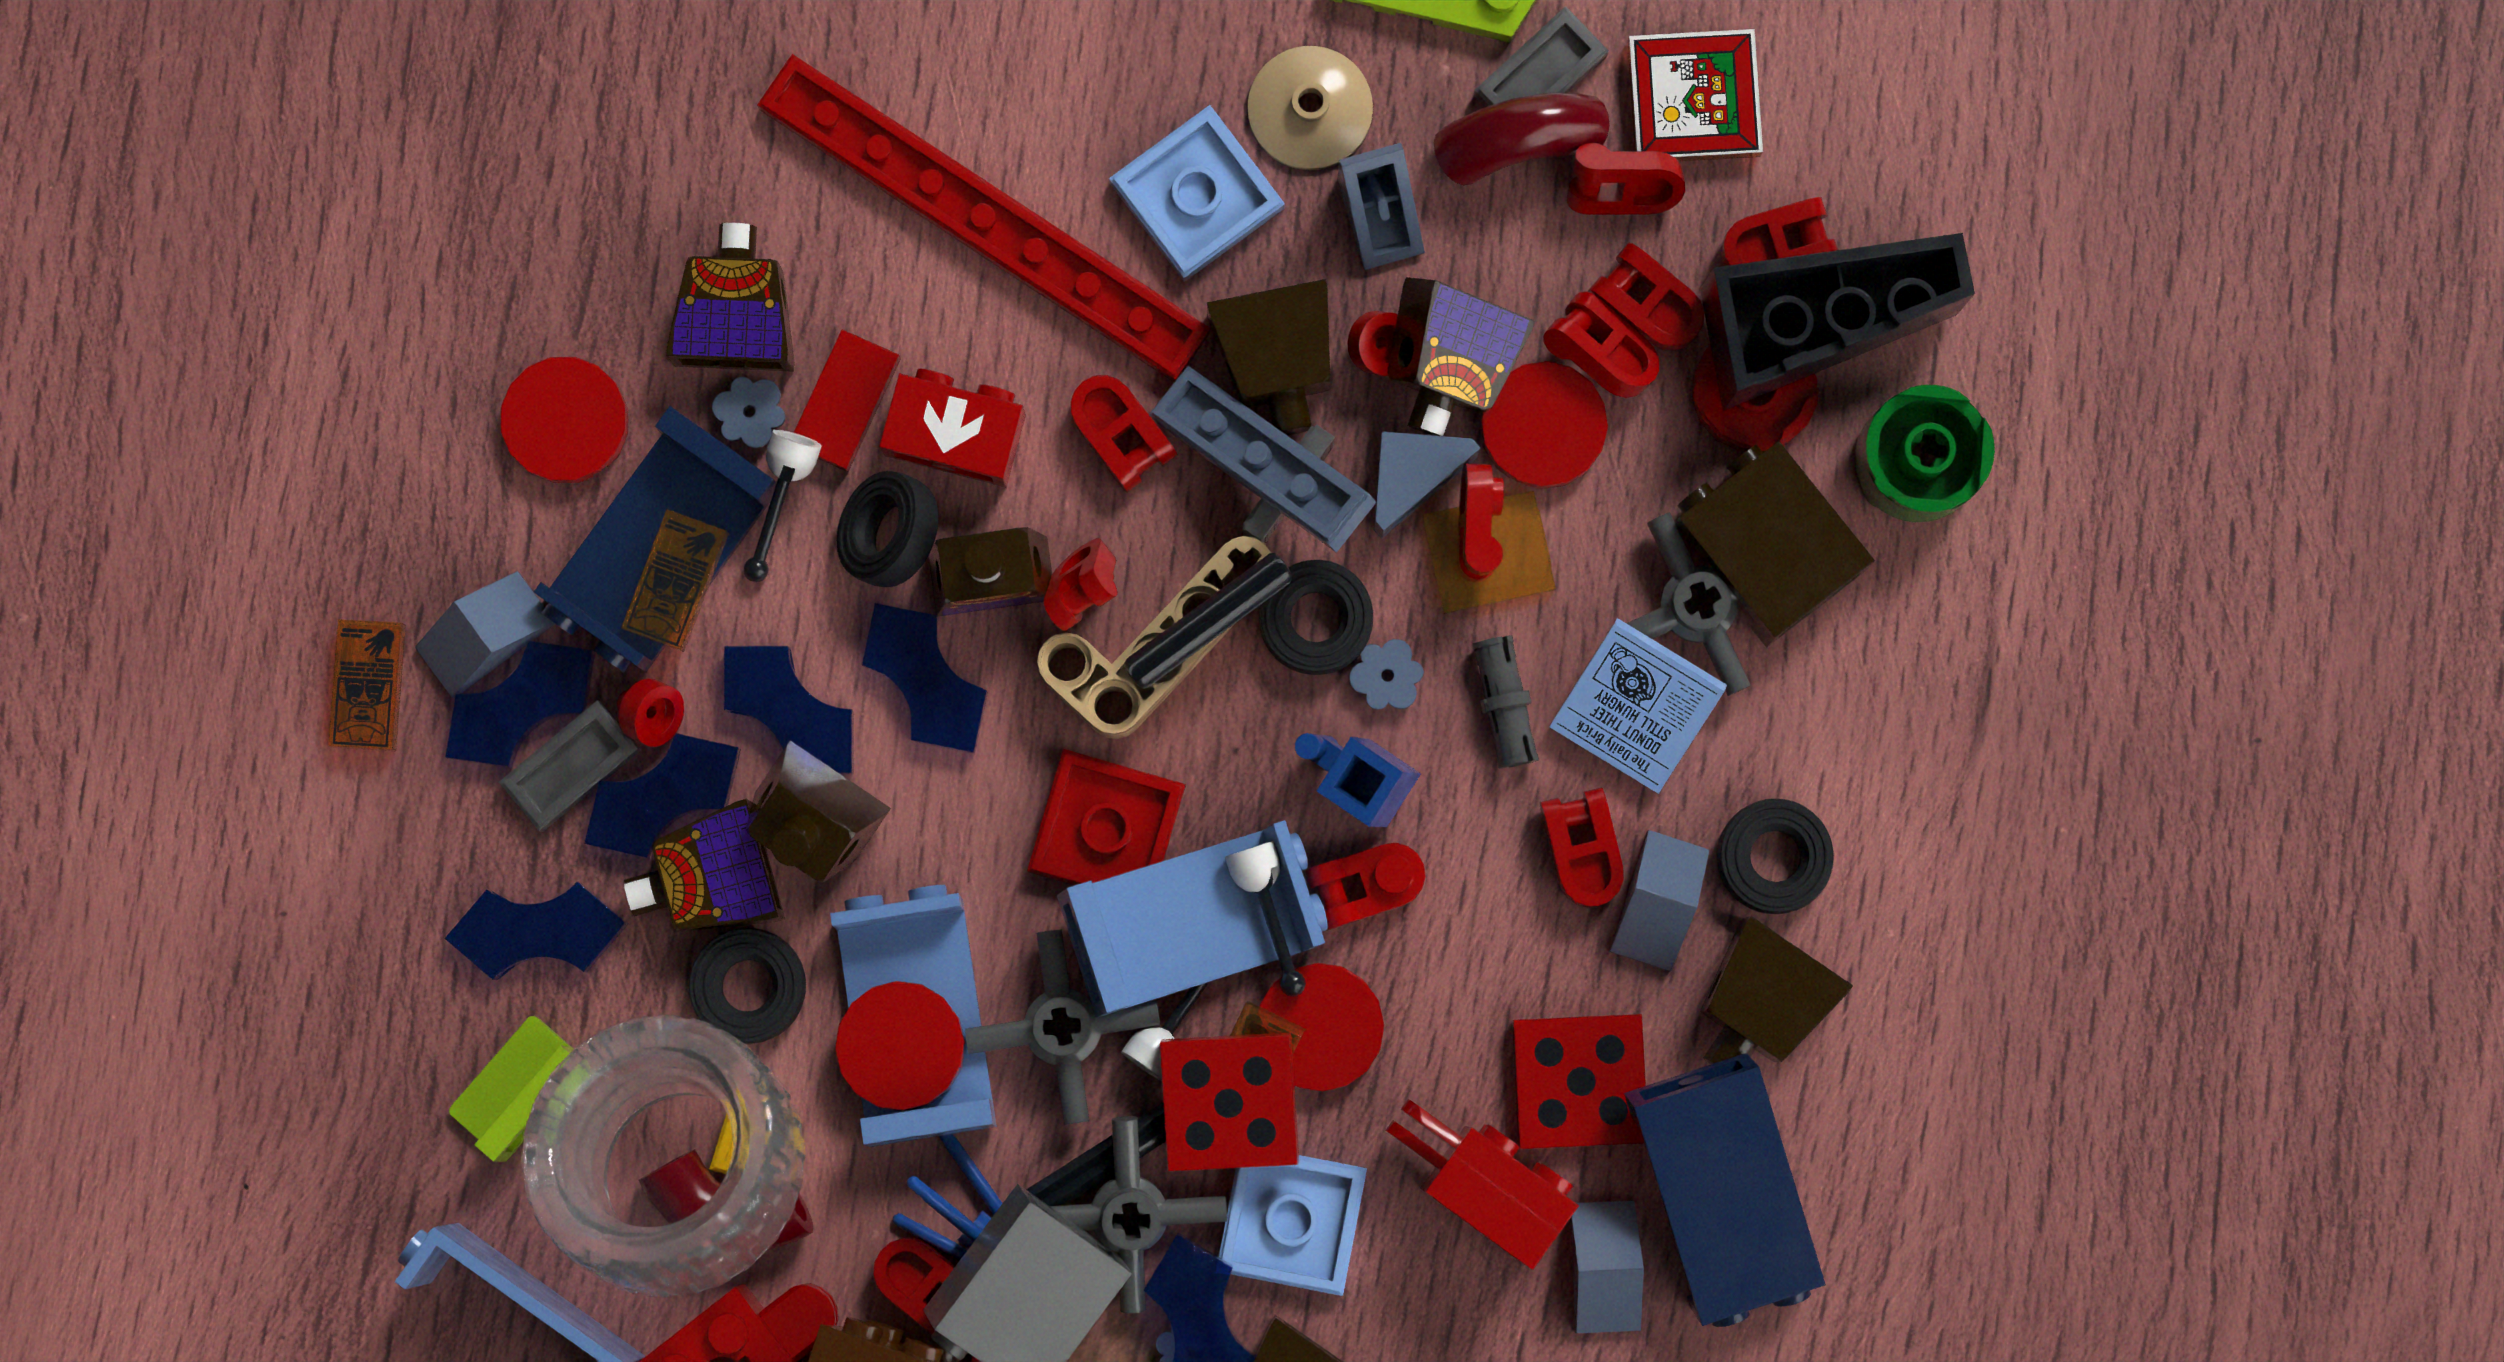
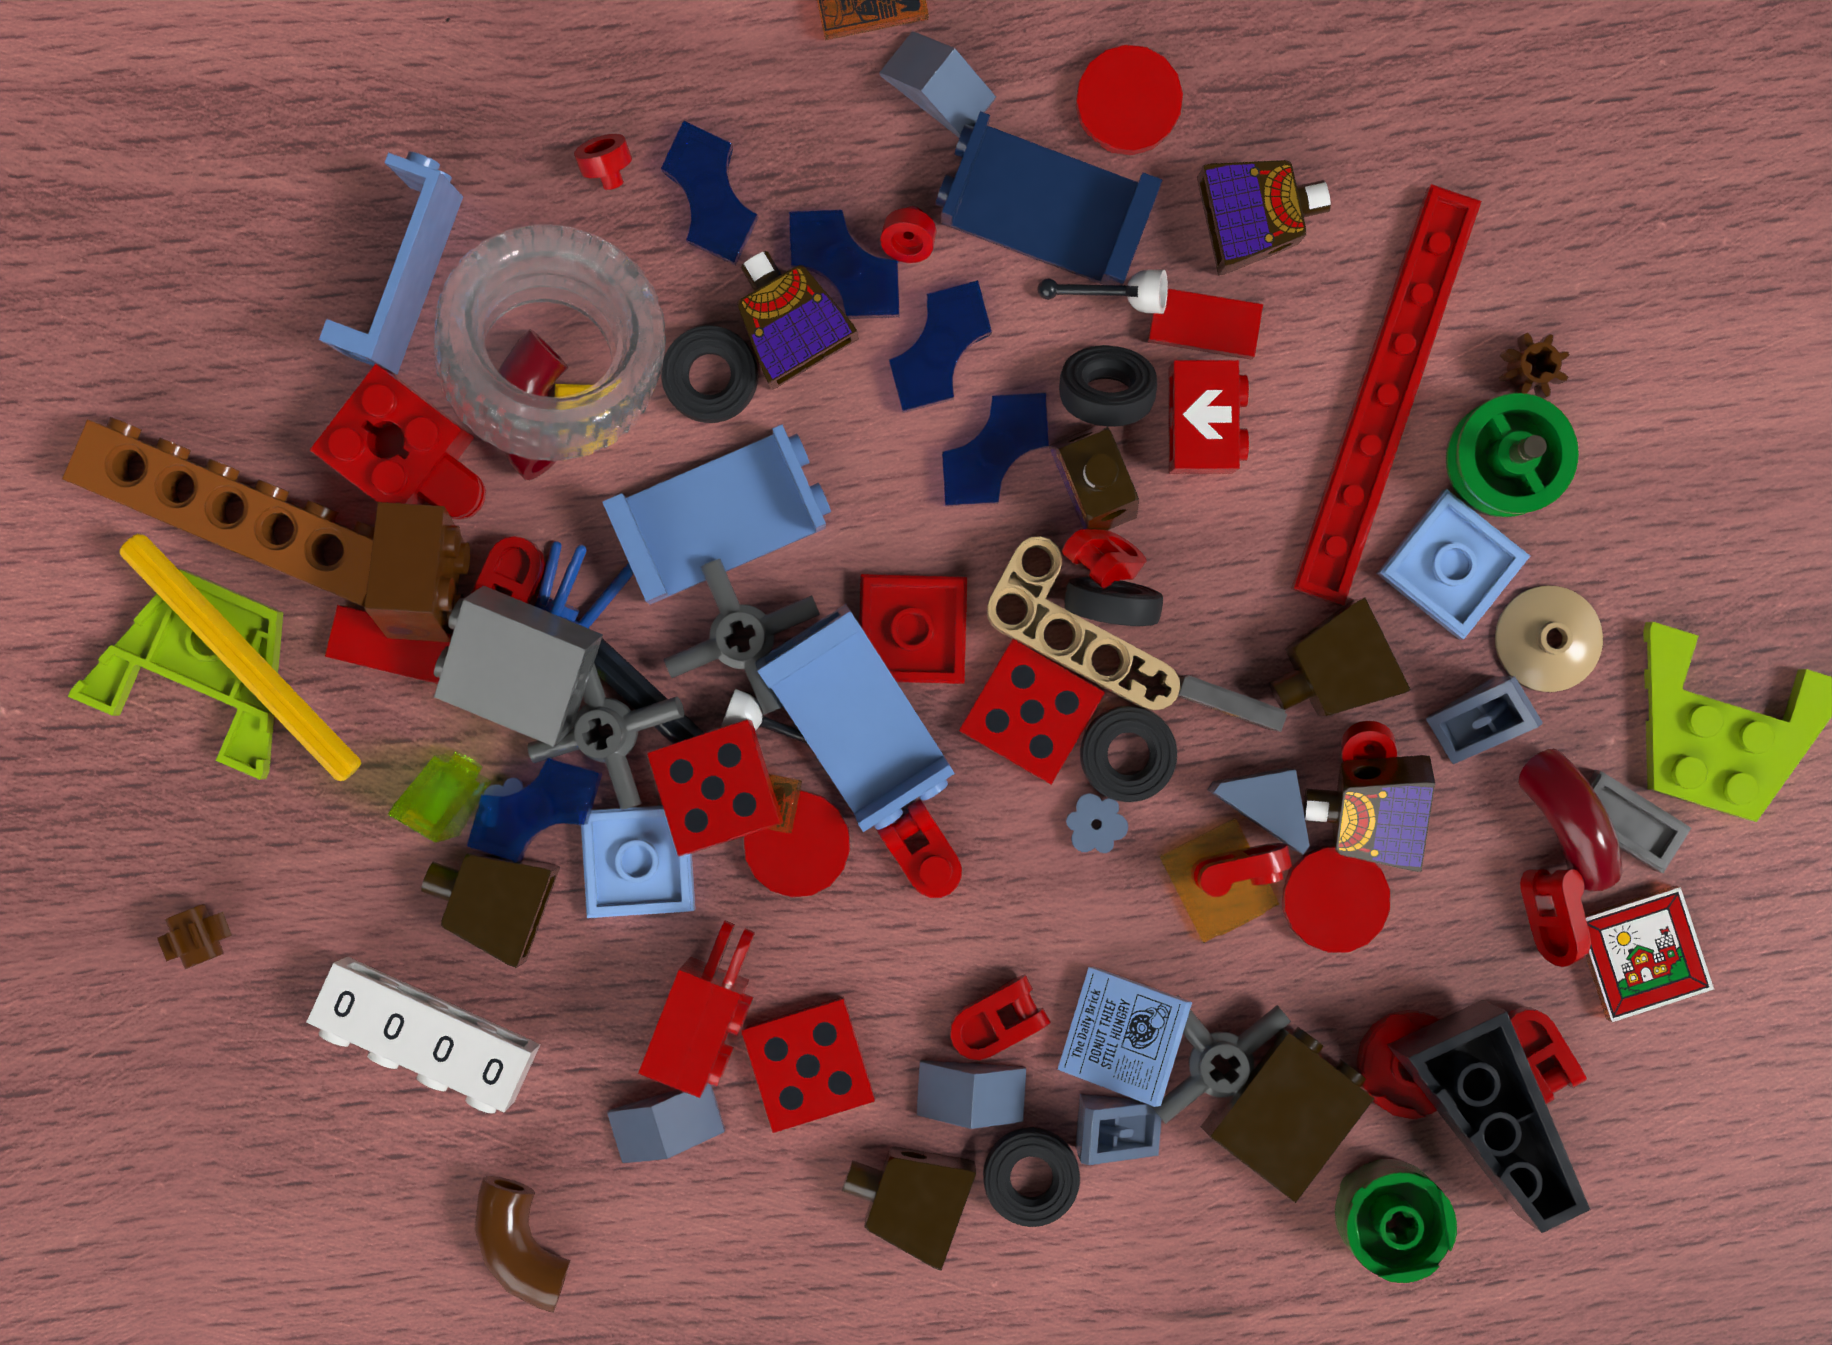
camera: 80 degrees right, 5 degrees up
(463, 1042) = (604, 159): none -> red tile
(496, 722) = (870, 115): clear blue tile -> none
(505, 1090) = (577, 203): lime panel -> none
(569, 766) = (848, 182): flat silver tile -> none
(675, 580) = (1021, 225): clear orange tile -> none
(732, 405) = (1175, 233): sand blue plant -> none
(812, 815) = (857, 388): dark brown torso -> none
(900, 1046) = (692, 510): red tile -> none
(996, 62) = (1548, 362): none -> reddish brown gear
(1090, 96) = (1512, 455): none -> green wheel
(1106, 410) = (1250, 536): red plate -> none
(1139, 585) = (1117, 604): none -> black tyre
(1208, 620) = (1101, 668): black axle -> none
(1237, 715) = (1032, 711): none -> red tile
(1256, 872) = (907, 760): hinge -> none
(1263, 459) = (1246, 678): sand blue tile -> none
(1360, 776) = (1006, 826): blue brick -> none
(1505, 702) = (1099, 926): dark grey pin -> none
(1621, 363) = (1409, 951): red plate -> none
(1668, 315) = (1453, 978): red plate -> none
(1727, 1190) = (750, 1209): dark blue panel -> none
(1743, 743) = (1115, 1129): none -> sand blue slope

